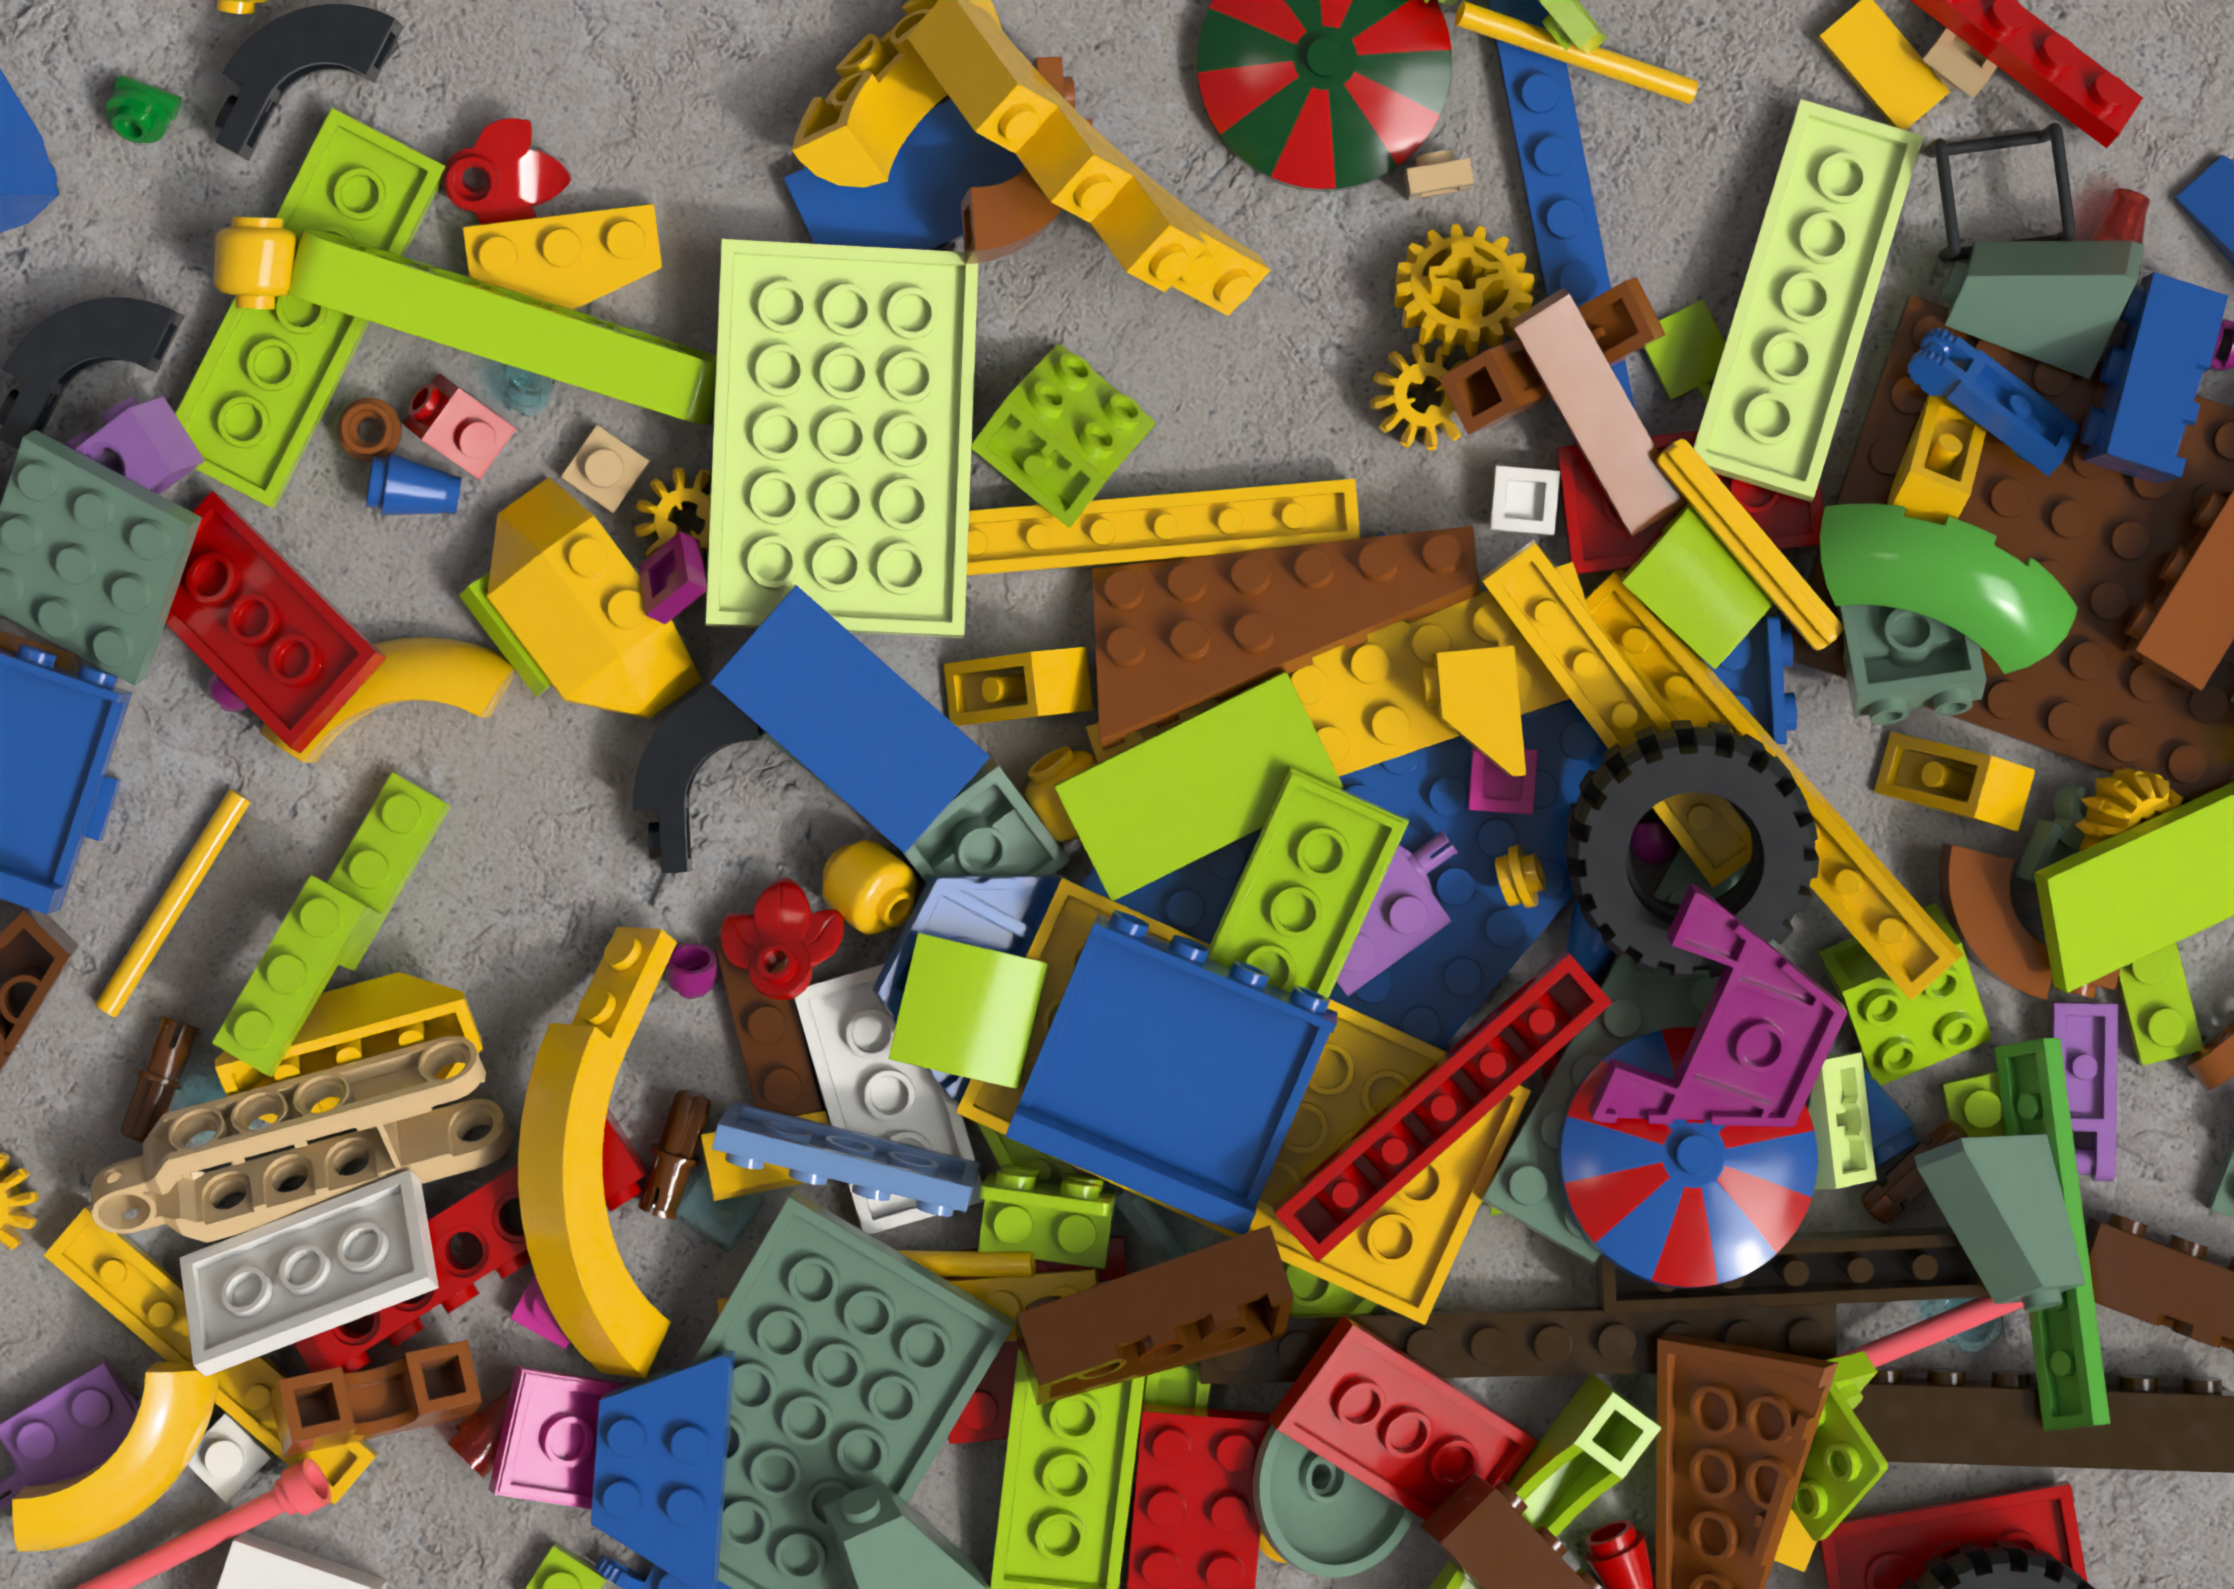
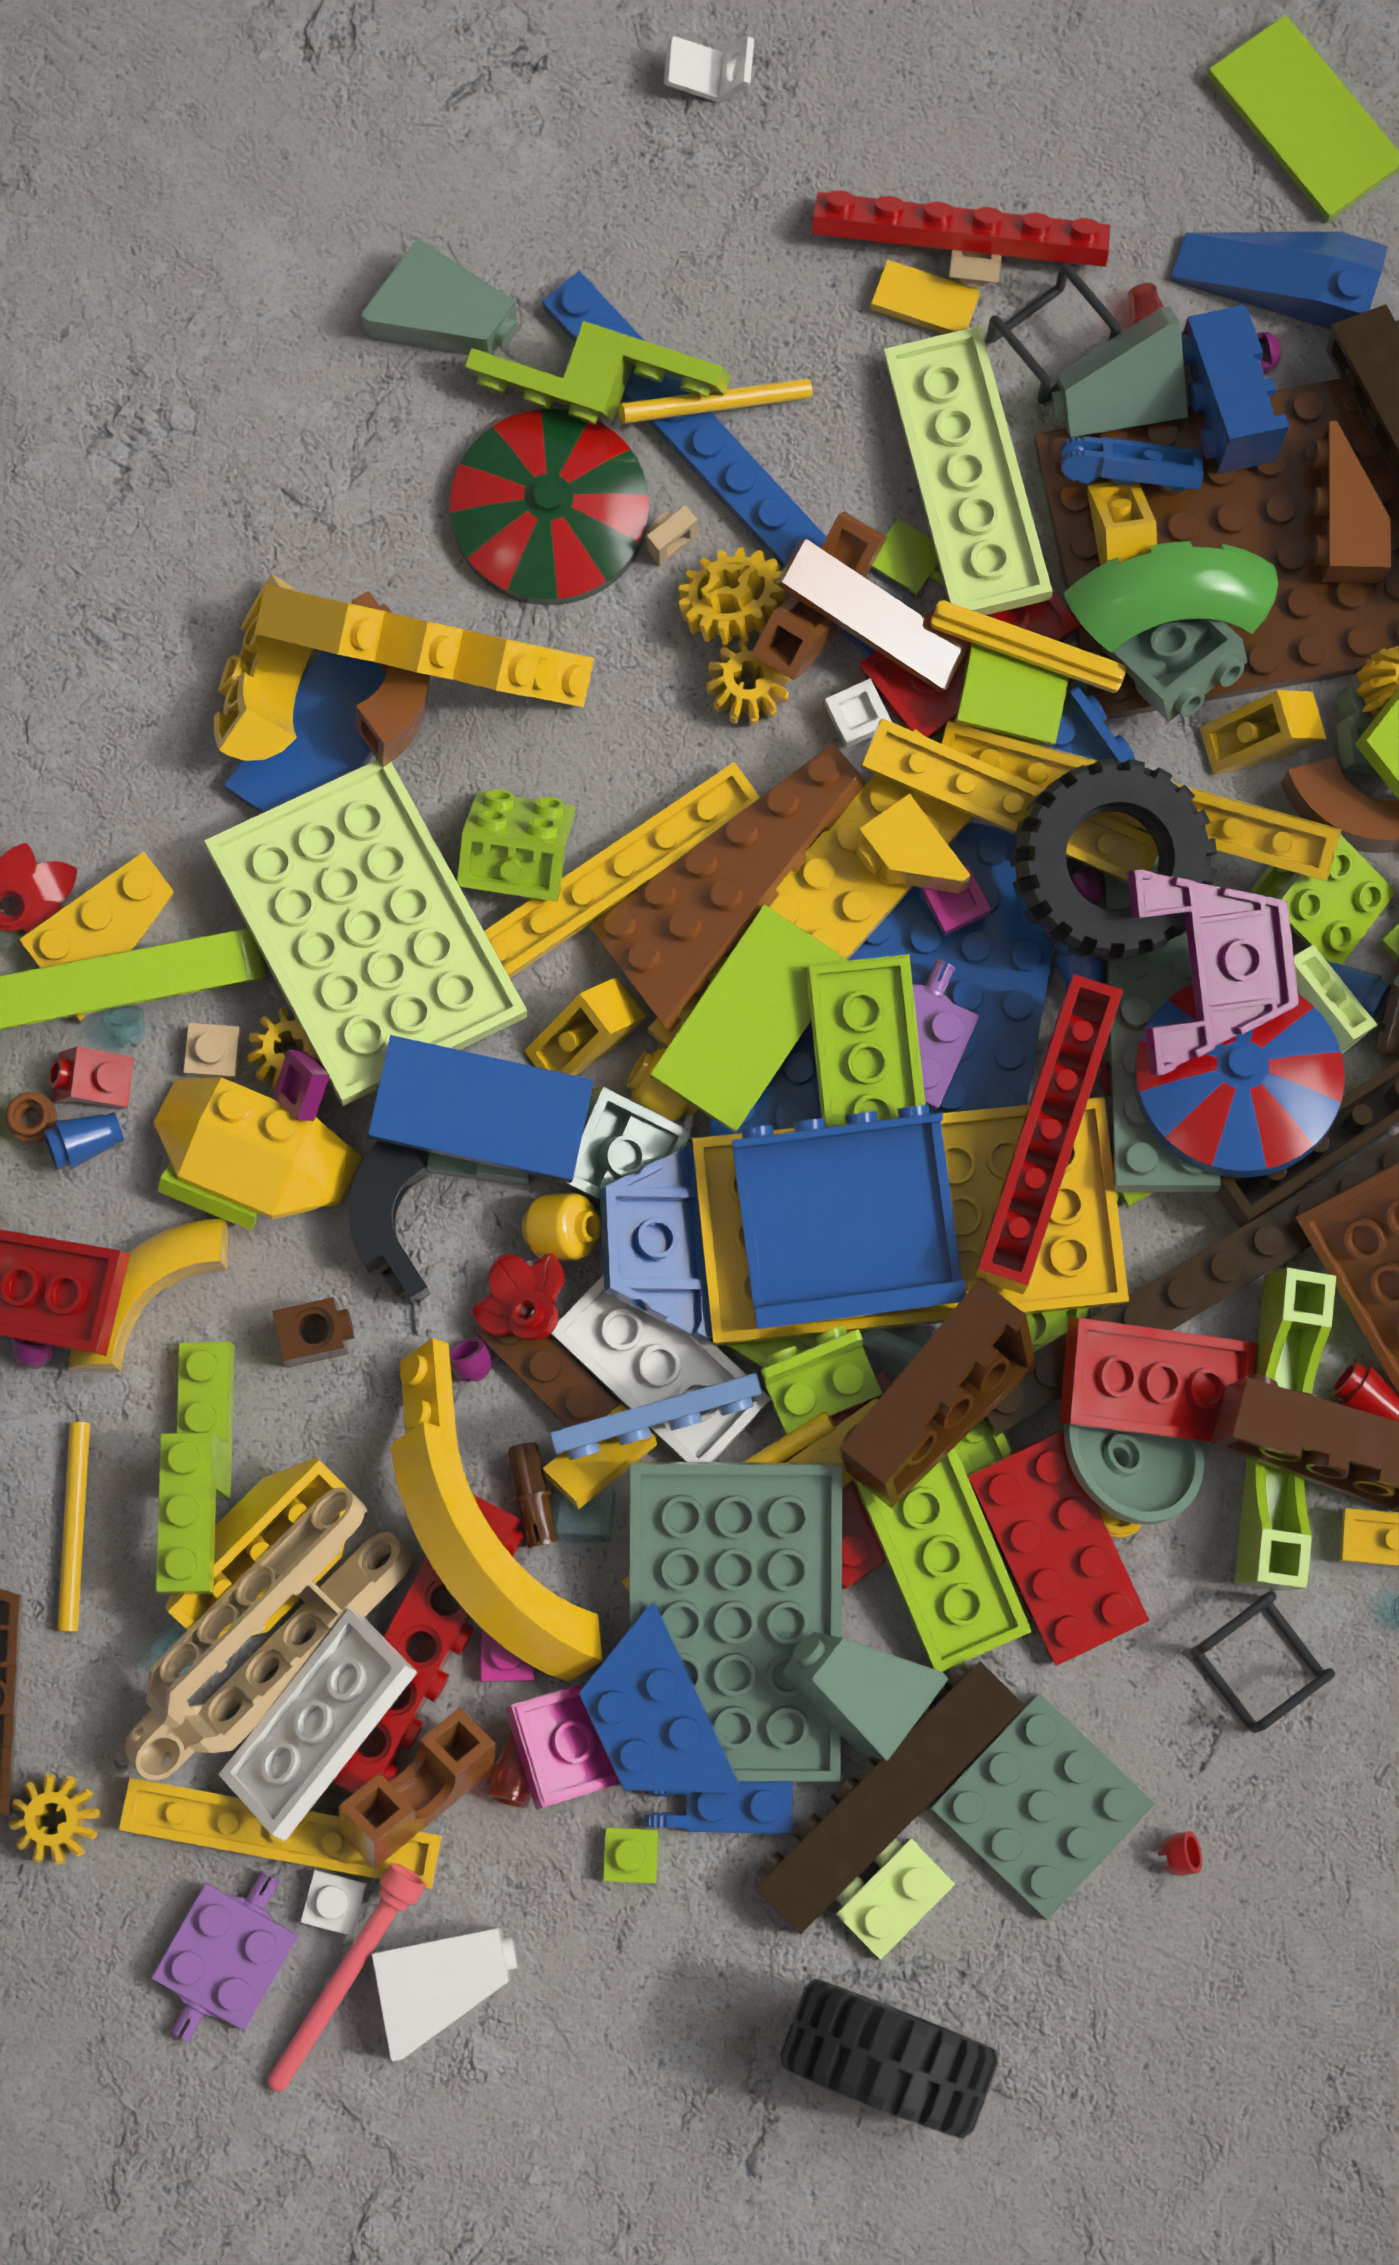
camera: 25 degrees left, 10 degrees down
(150, 1459) = (271, 1950): yellow brick -> none
(158, 1079) = (131, 1655): reddish brown axle -> none
(512, 851) = (290, 1325): none -> reddish brown brick
(968, 1011) = (681, 1263): lime slope -> none
(1520, 877) = (1008, 958): yellow plate -> none

